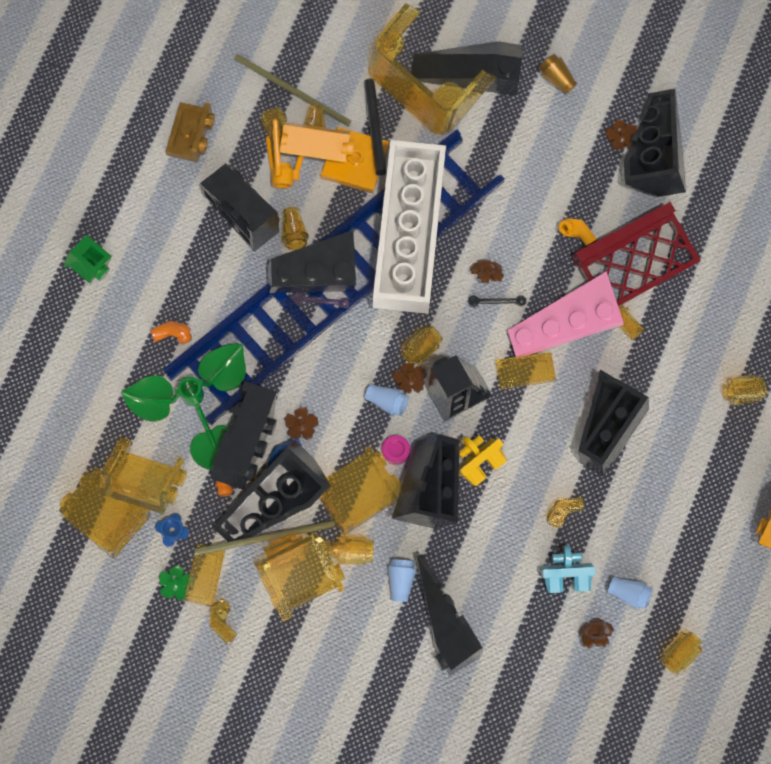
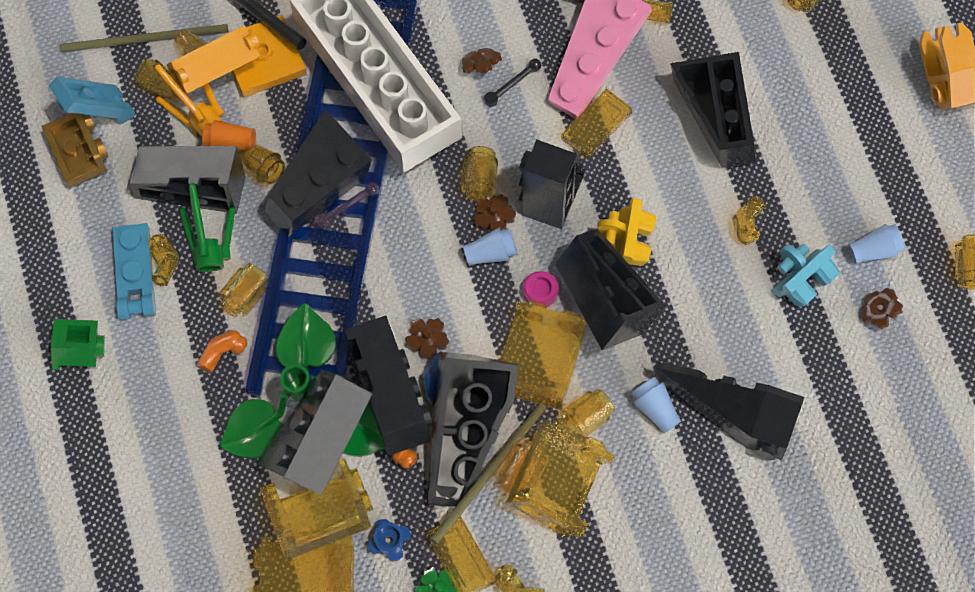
camera: 35 degrees left, 5 degrees down
(161, 240) = (133, 270): none -> dark azure plate
(176, 431) = (317, 432): none -> wedge
(186, 247) = (165, 258): none -> clear yellow arm
(212, 264) = (206, 252): none -> green plant
(214, 305) = (243, 290): none -> clear yellow brick
(220, 109) = (91, 98): none -> dark azure plate
(283, 199) = (228, 134): none -> orange cone

